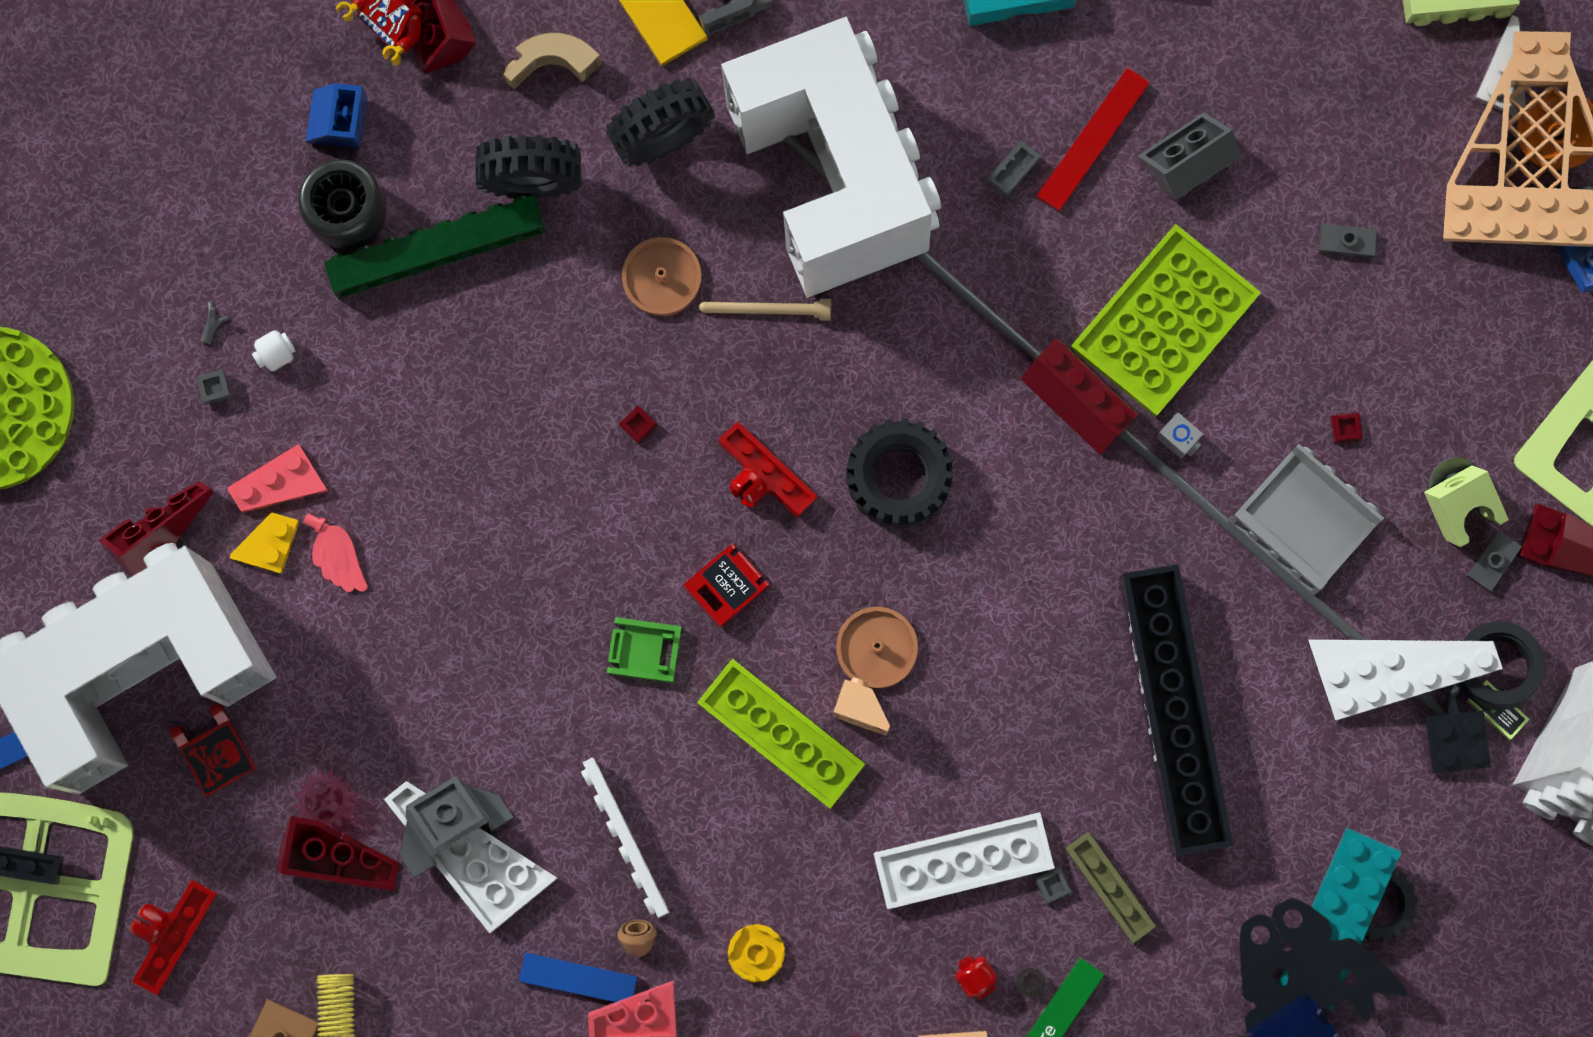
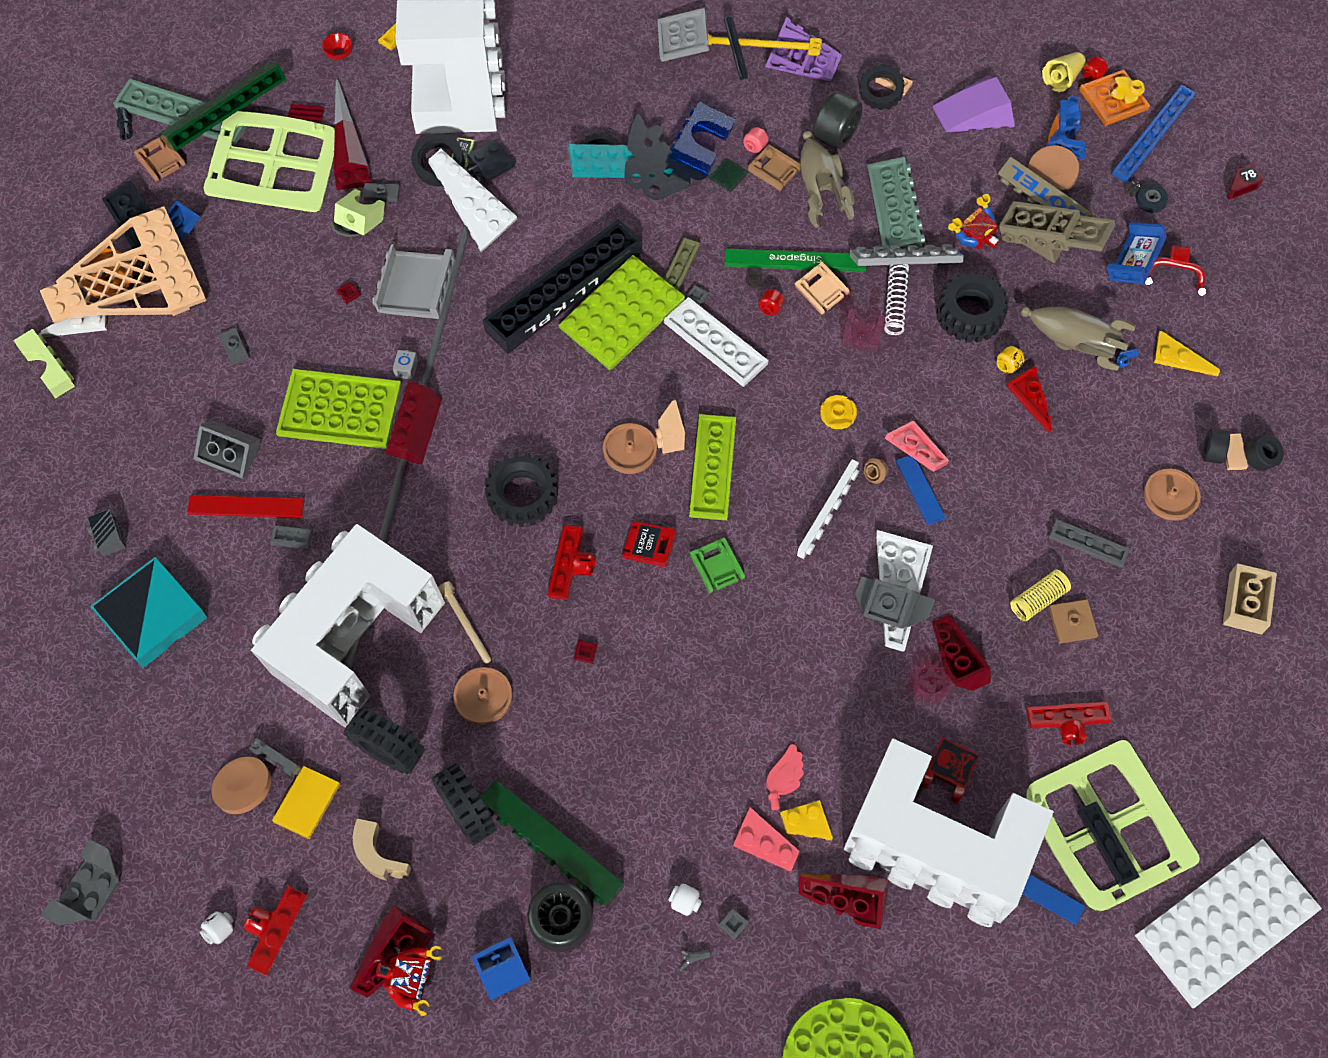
camera: 125 degrees left, 15 degrees down
(1088, 765) = (621, 312): none -> lime plate

